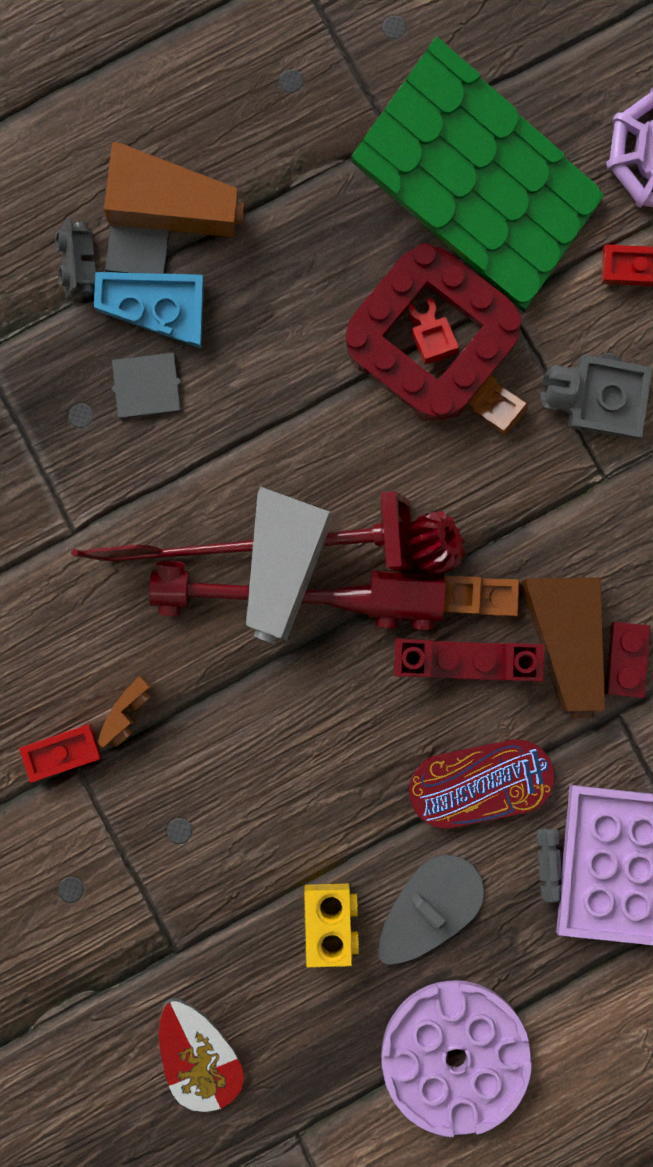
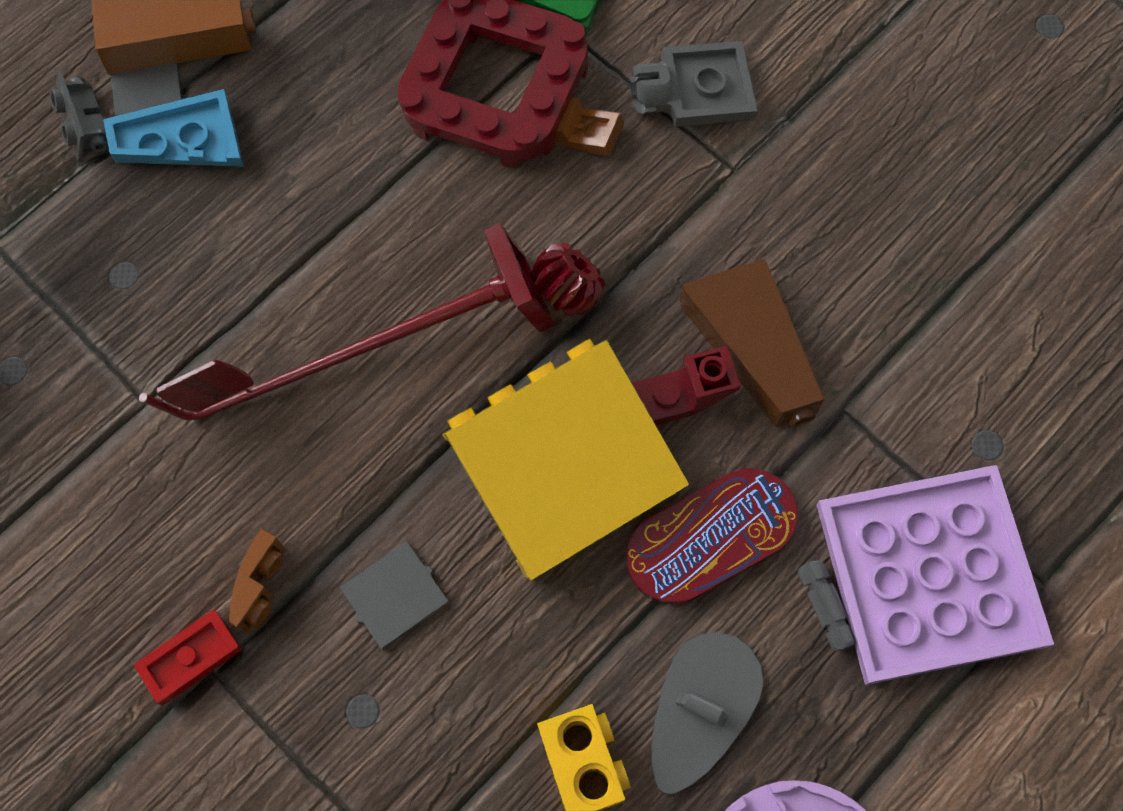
camera: 15 degrees left, 15 degrees down
(146, 385) = (191, 222): dark grey piece -> none
(226, 751) = (394, 595): none -> dark grey piece
(283, 560) = (396, 344): light grey slope -> none
(387, 597) = (276, 423): dark red bar -> none
(387, 694) = (565, 457): none -> yellow panel
(432, 336) = (495, 81): red plate -> none
(482, 596) = (641, 328): dark orange slope -> none
(627, 659) = (830, 346): dark red plate -> none

